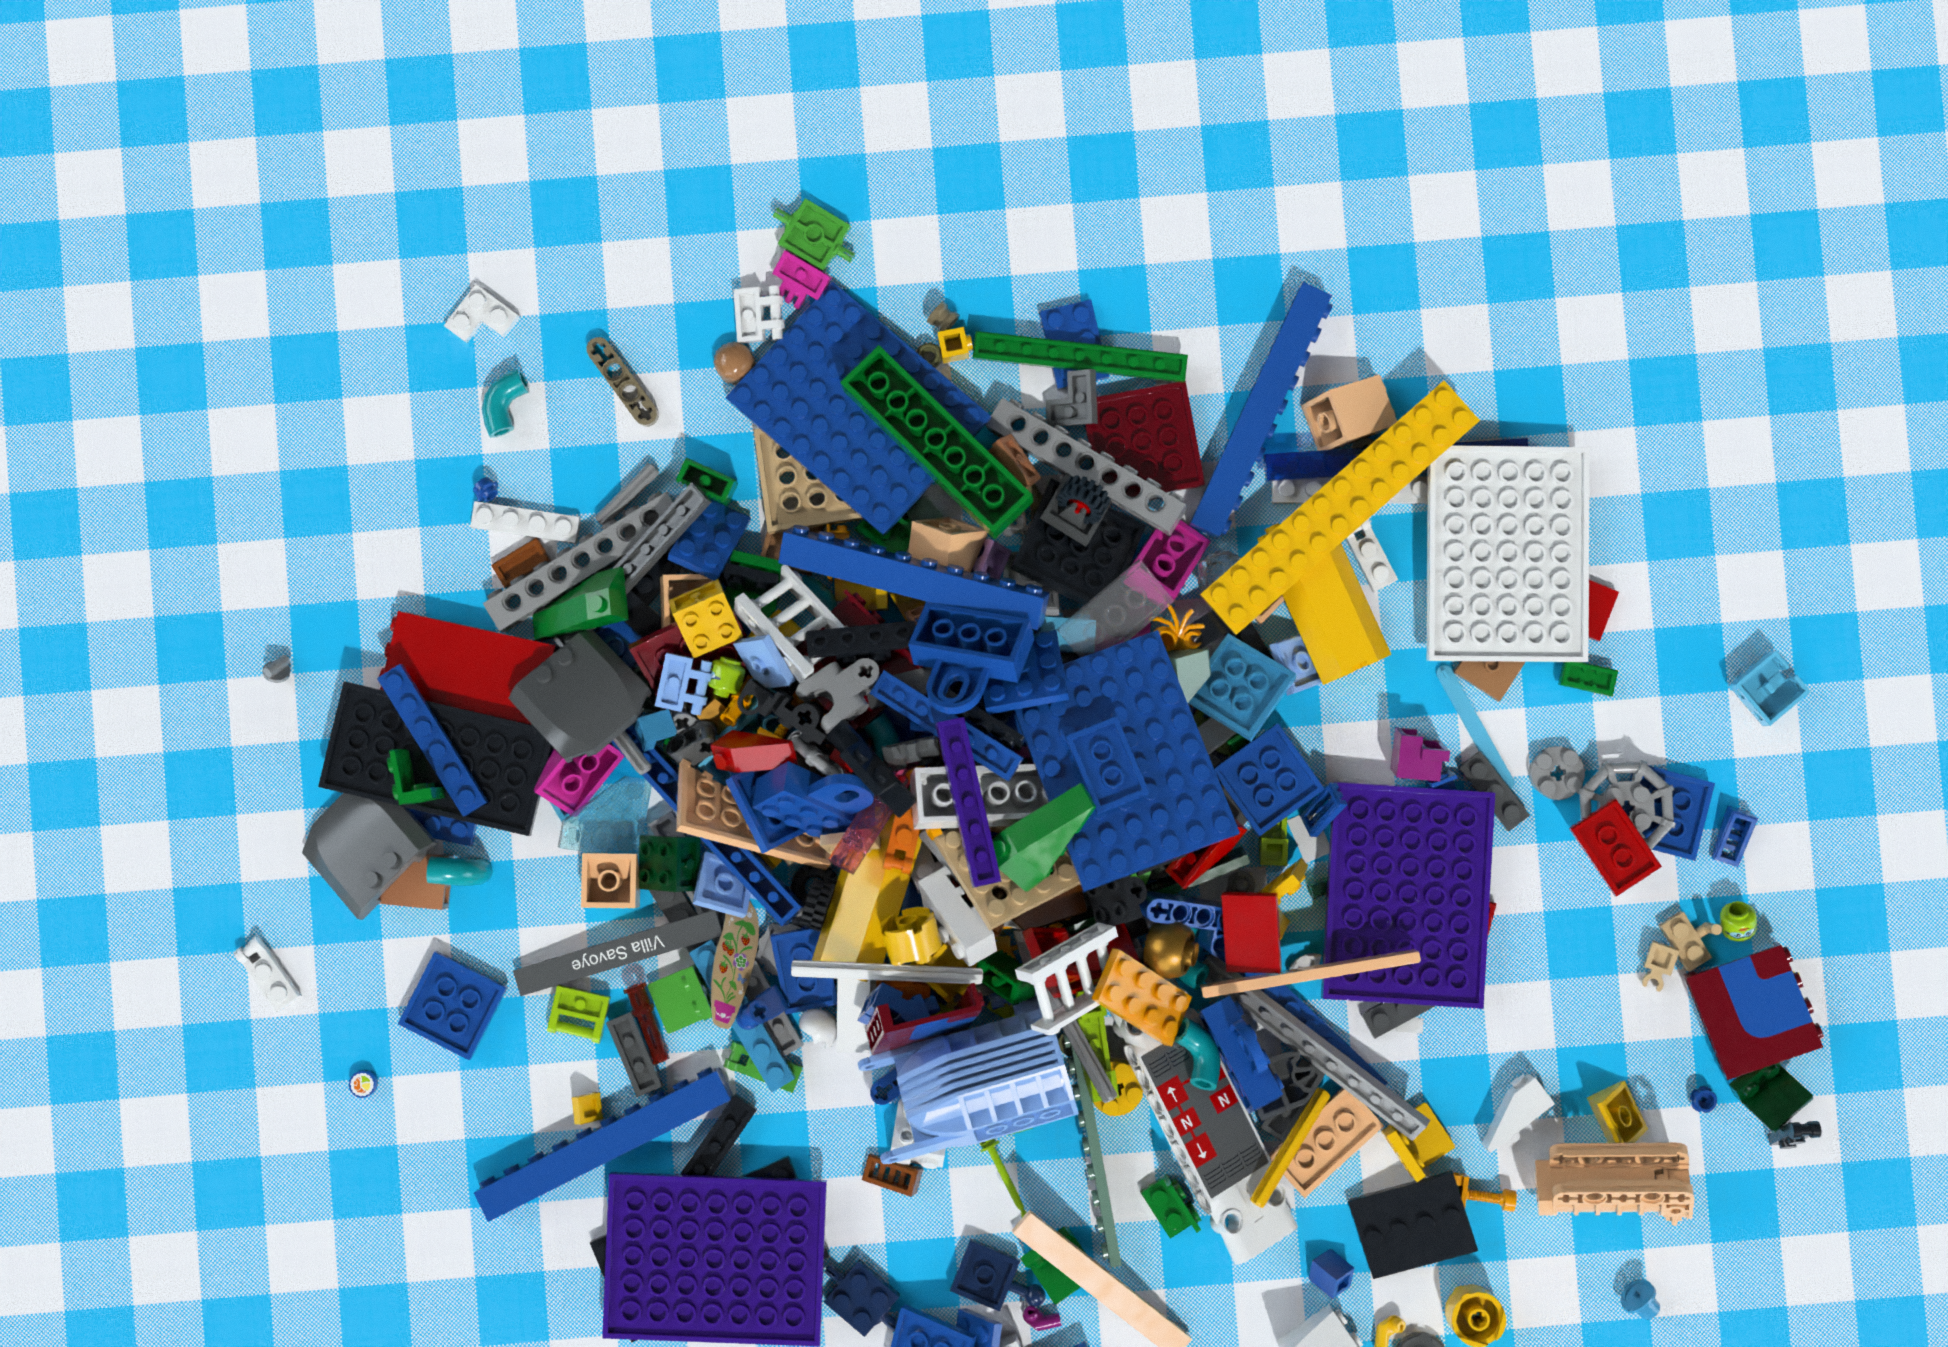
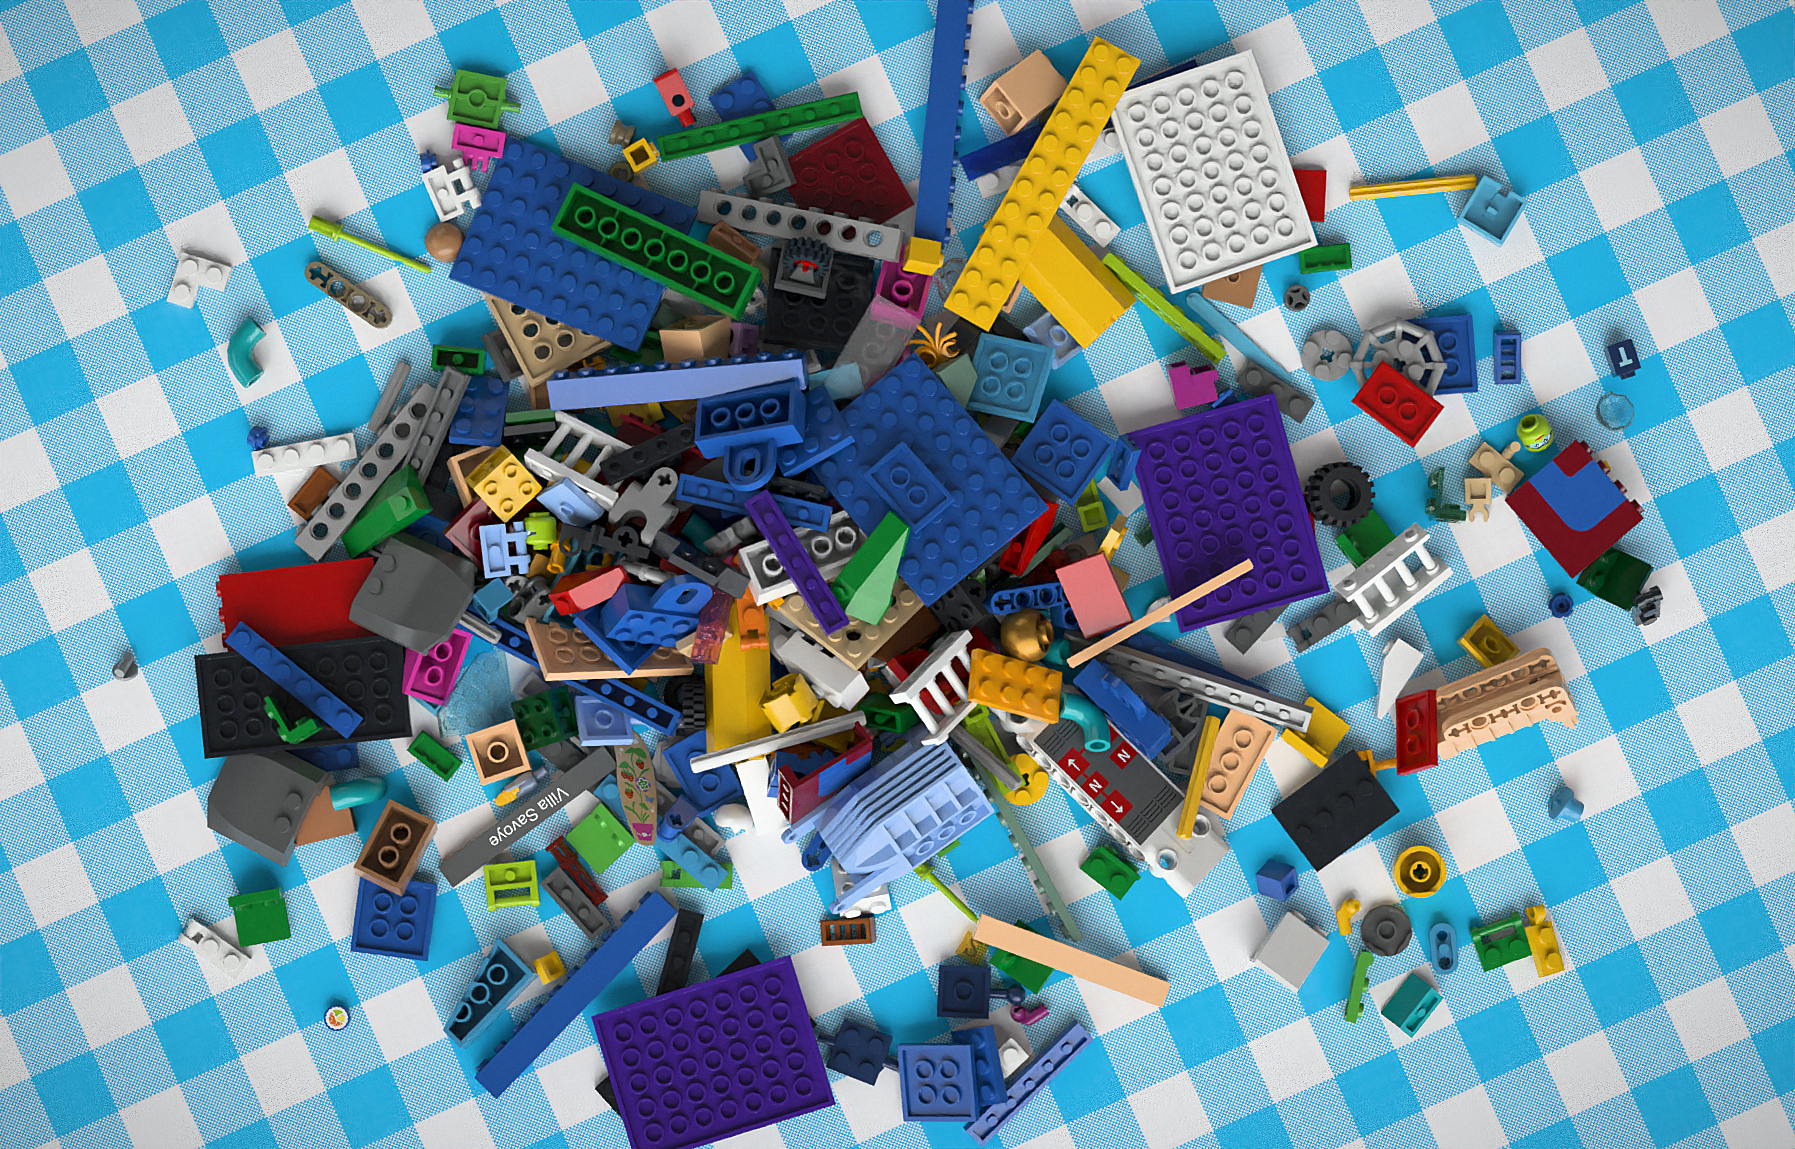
camera: 20 degrees left, 0 degrees up
(323, 958) = (260, 917): none -> green bracket
(475, 939) = (395, 847): none -> medium nougat brick
(526, 1109) = (494, 988): none -> dark azure wedge
(548, 860) = (435, 756): none -> green plate
(622, 920) = (521, 786): none -> sand blue piece
(632, 316) = (335, 232): none -> lime piece
(745, 278) = (428, 161): none -> blue plate
(750, 492) = (502, 355): none -> dark grey plate
(1003, 1234) = (972, 949): none -> clear yellow tile
(1008, 285) = (668, 86): none -> torso
(1196, 538) = (922, 256): none -> yellow brick
(1214, 888) = (1046, 568): none -> clear red bracket
(1417, 678) = (1172, 315): none -> lime plate
(1463, 1034) = (1323, 623): none -> dark grey plate
(1522, 1179) = (1416, 732): none -> red tile
(1534, 973) = (1364, 539): none -> green bracket
(1544, 919) = (1359, 491): none -> black tyre
(1552, 707) = (1298, 294): none -> dark grey wheel
(1556, 1035) = (1405, 595): none -> white fence
(1616, 958) = (1449, 512): none -> clear green bracket
(1697, 637) = (1412, 187): none -> yellow axle
(1822, 928) = (1614, 412): none -> clear light blue hair
(1848, 878) = (1622, 359): none -> dark blue brick

